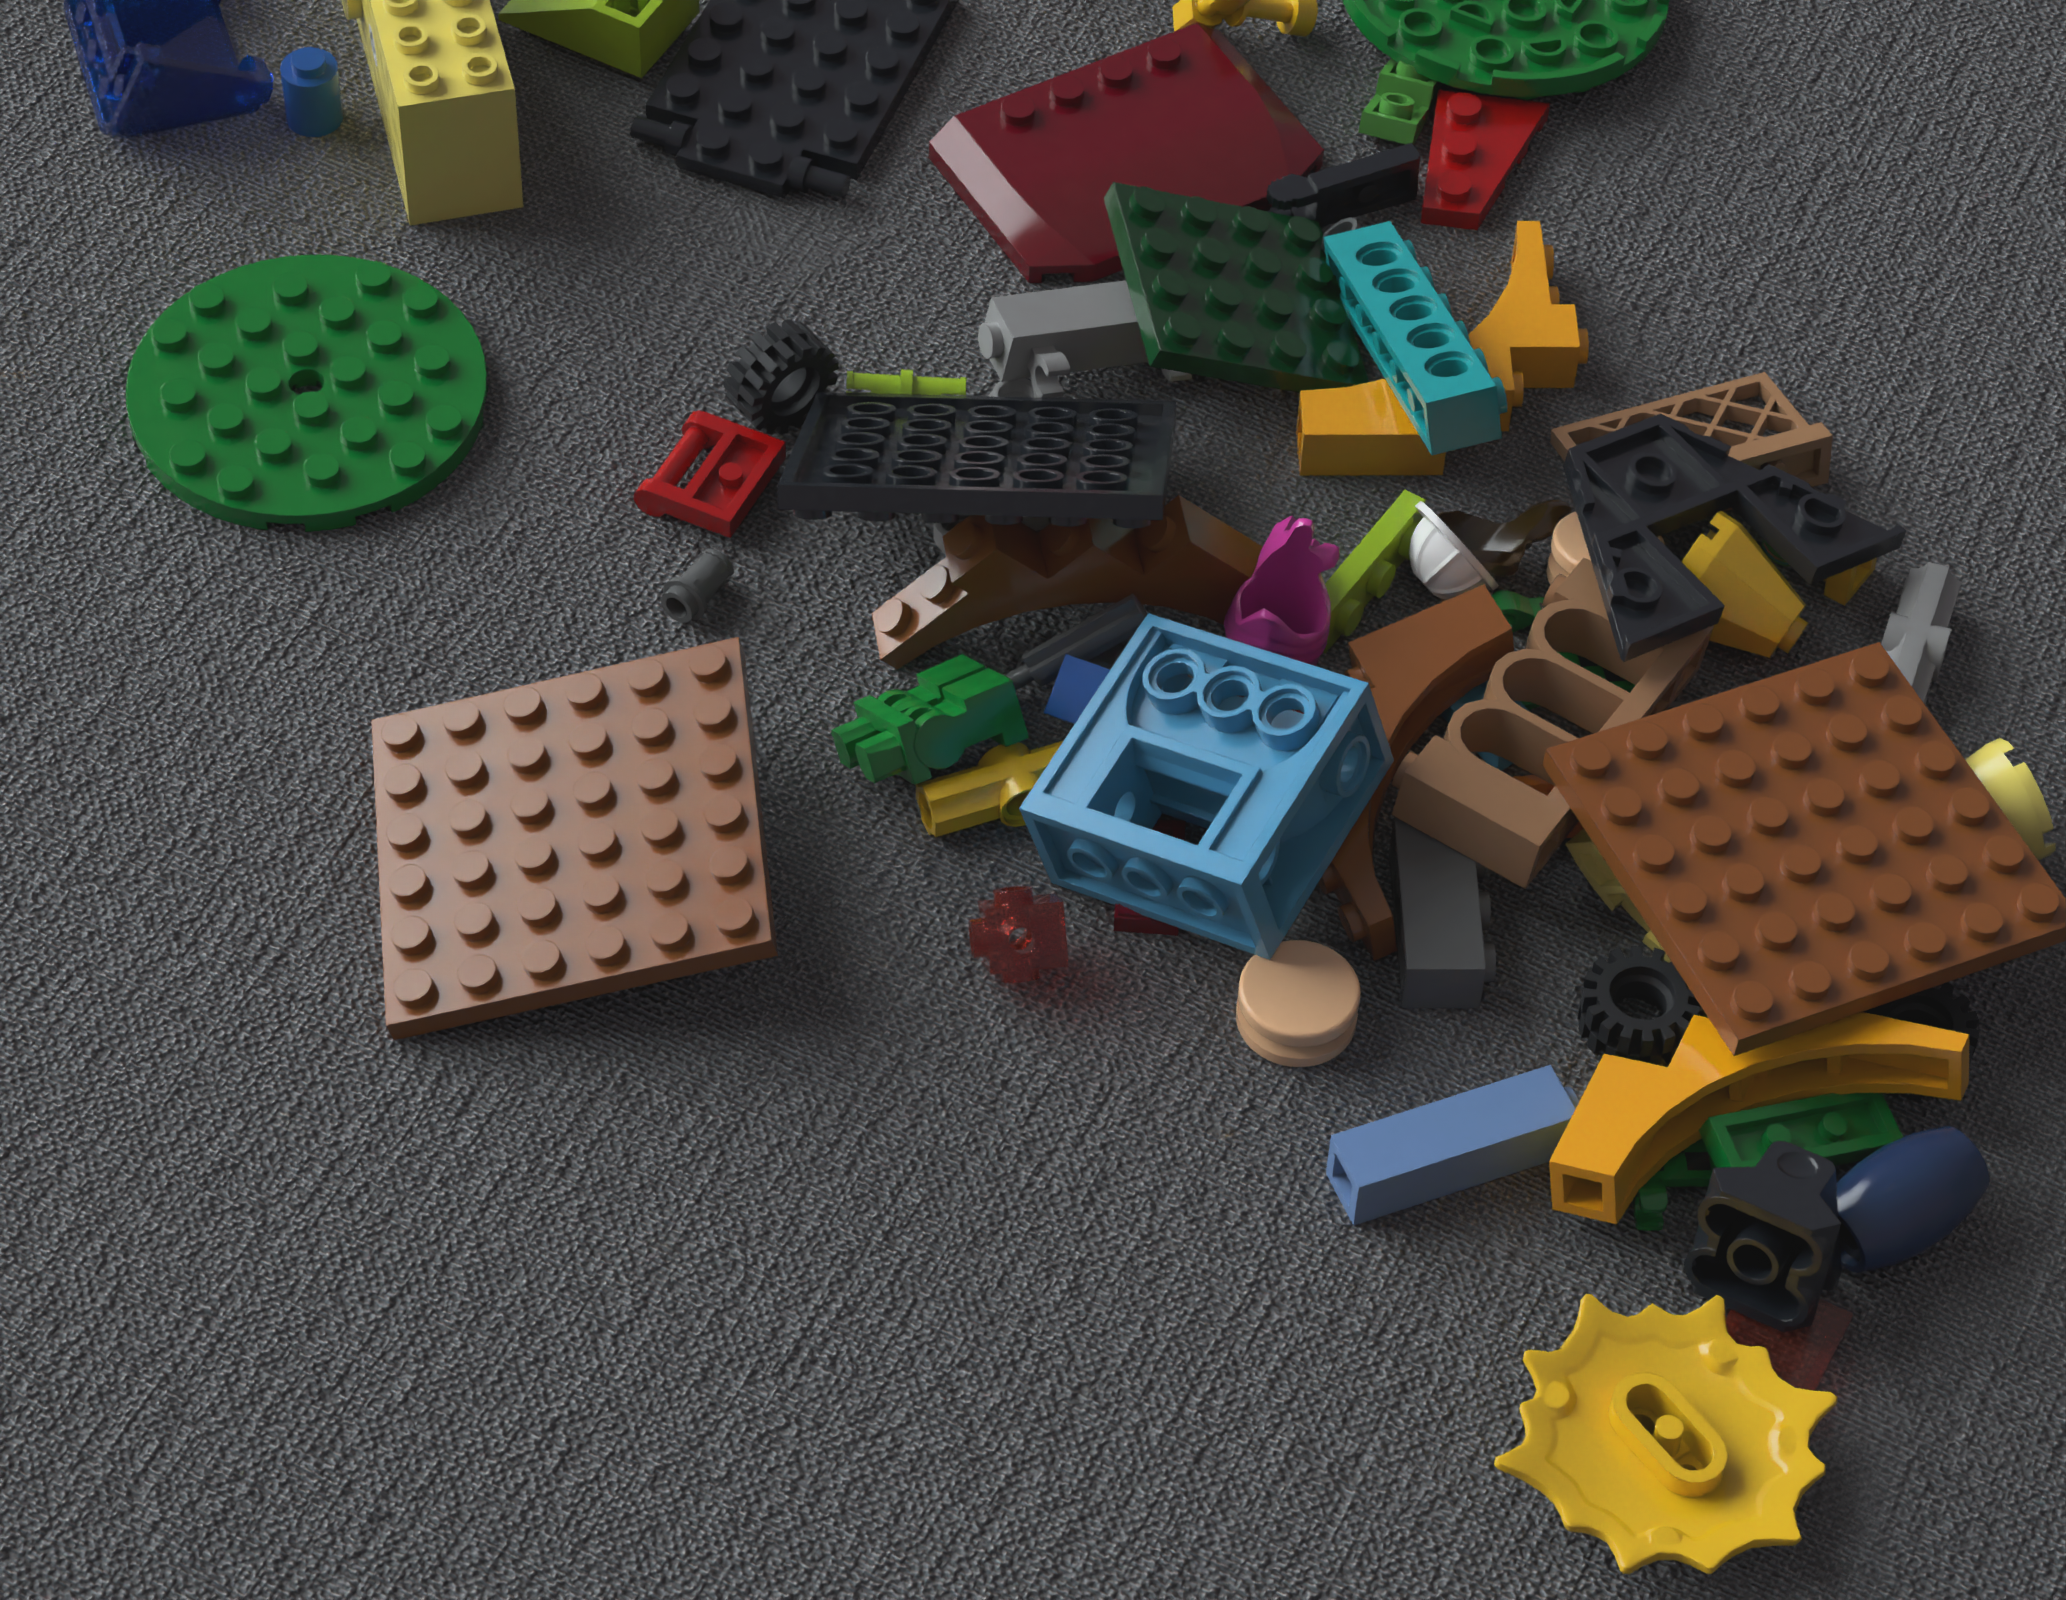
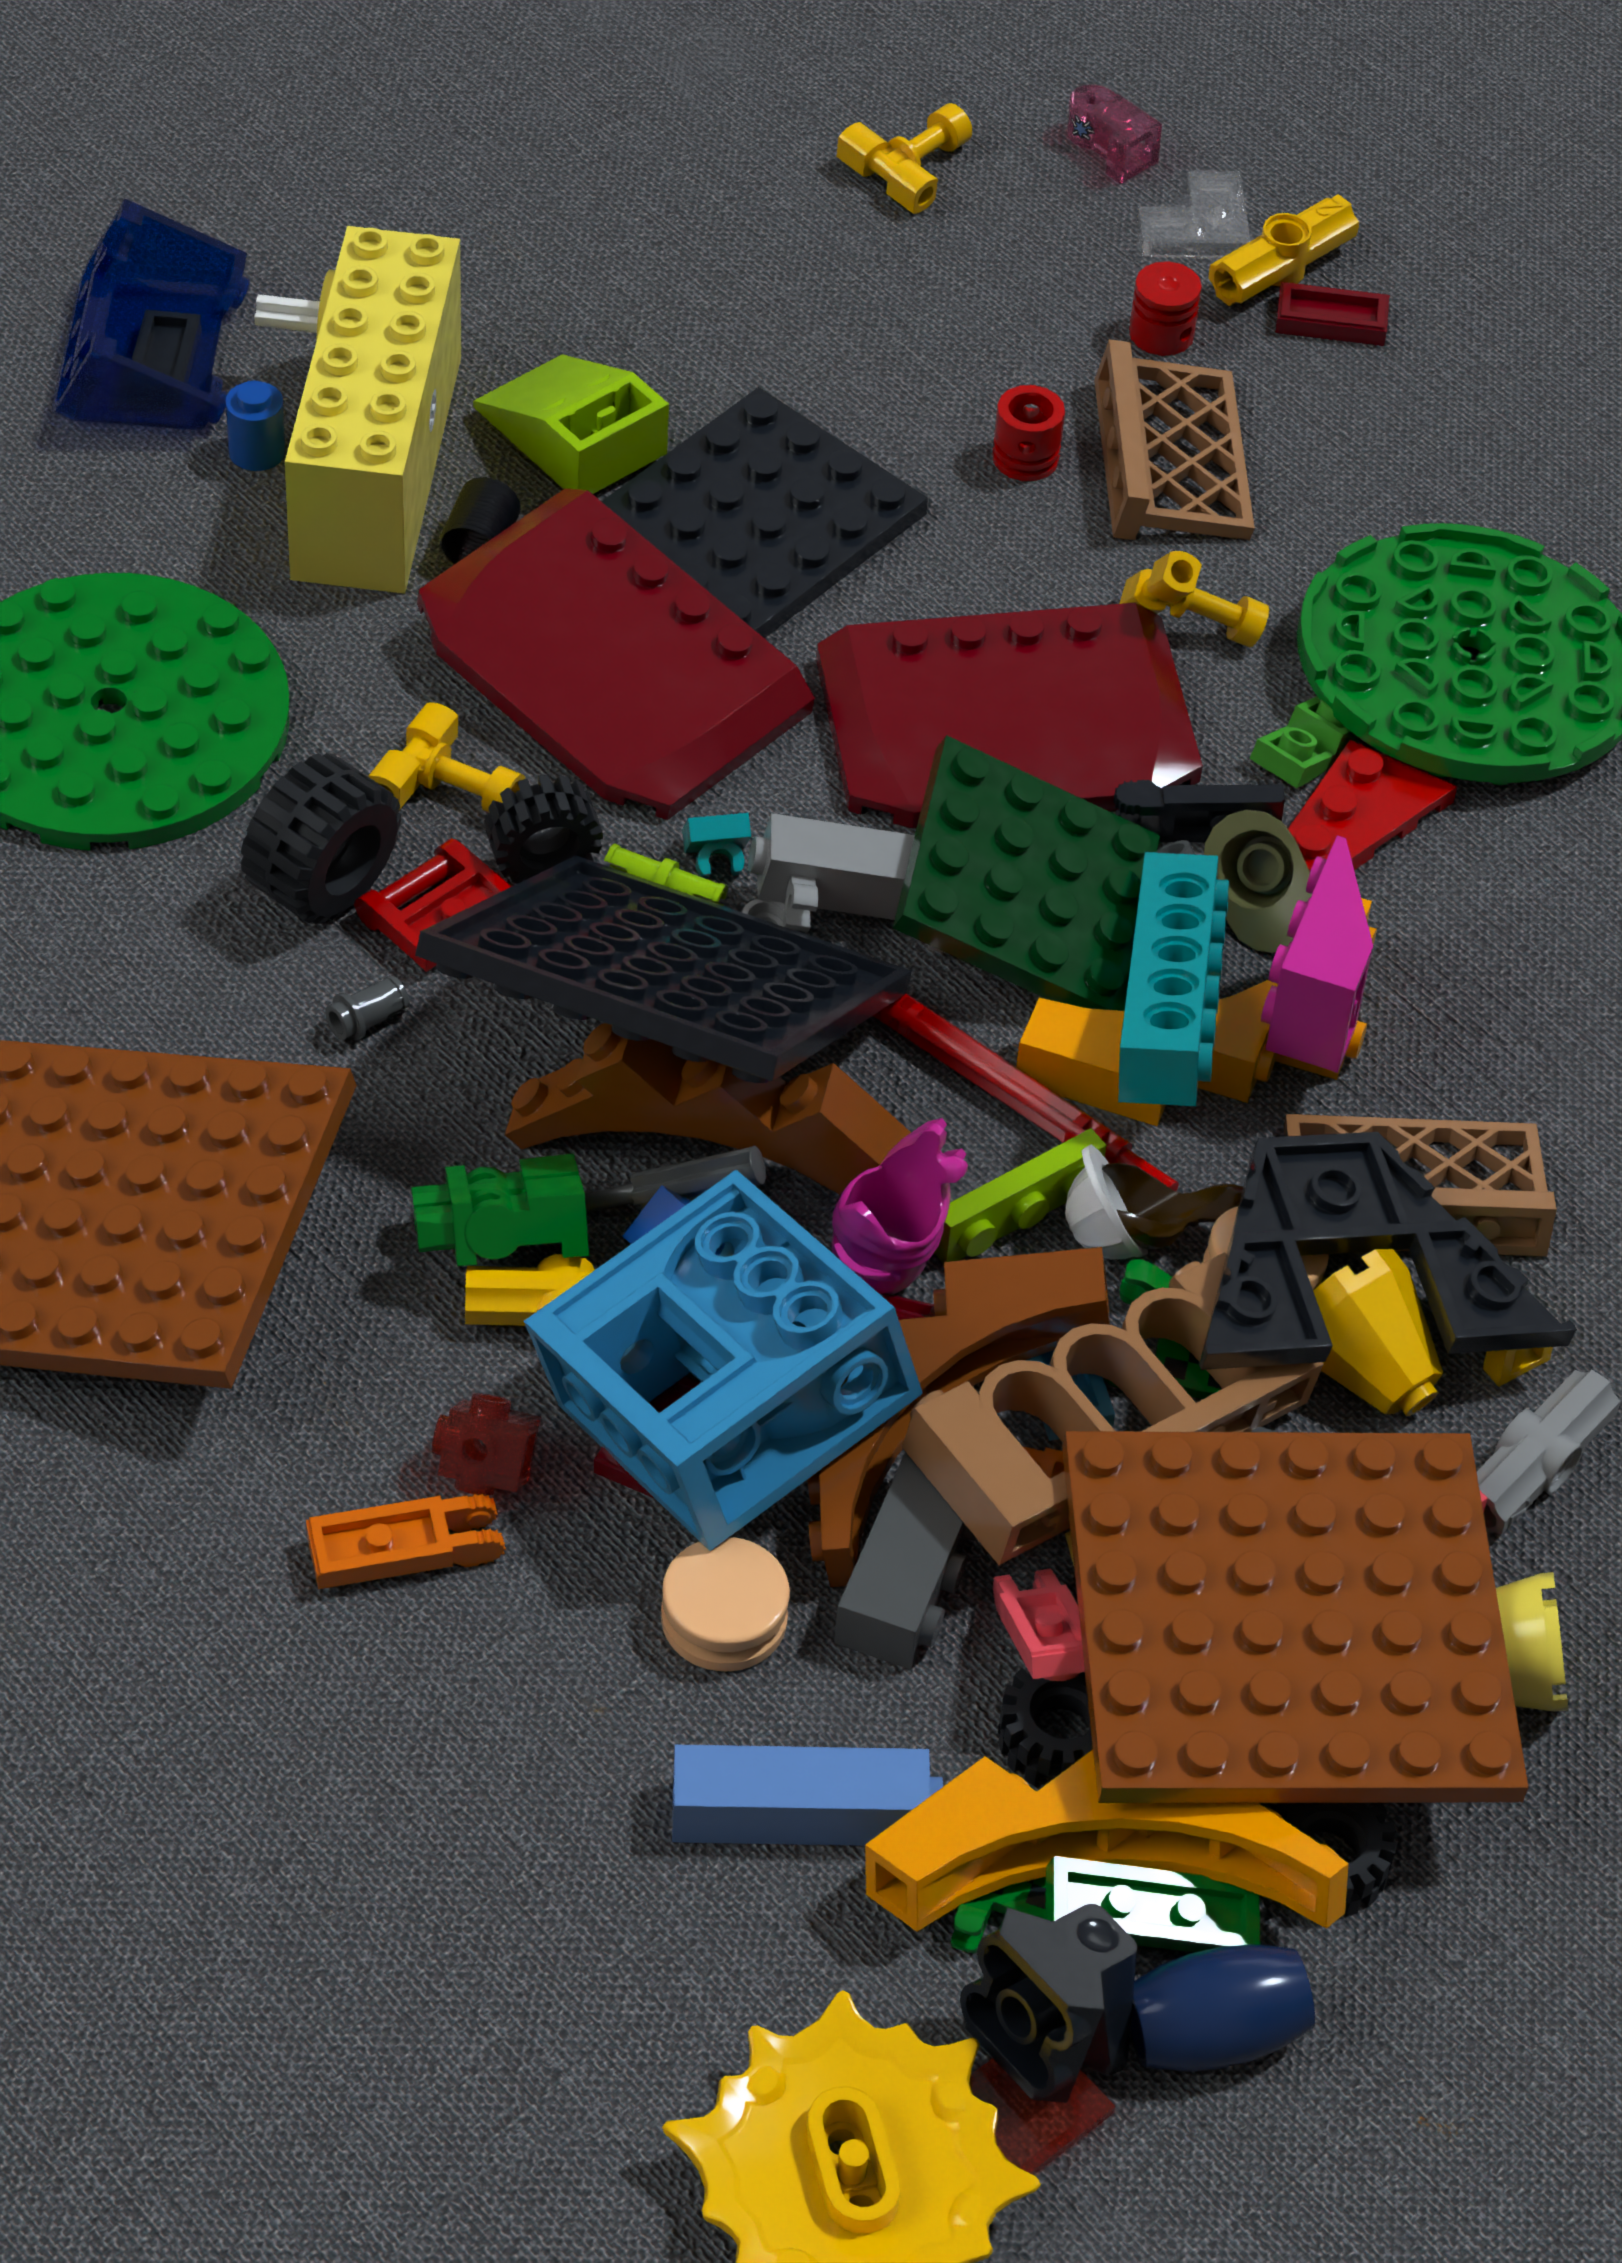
camera: 20 degrees right, 0 degrees up
(184, 35) = (168, 342): none -> black tile
(568, 122) = (480, 513): none -> black piece
(588, 443) = (320, 838): none -> black tyre
(629, 350) = (429, 761): none -> yellow bar
(752, 202) = (612, 655): none -> dark red slope
(932, 337) = (717, 835): none -> teal tile
(981, 1043) = (402, 1539): none -> orange hinge
(1296, 474) = (1006, 1081): none -> red axle
(1440, 225) = (1263, 876): none -> olive piece
(1548, 283) = (1322, 968): none -> dark pink slope
(1589, 926) = (1042, 1625): none -> coral hinge

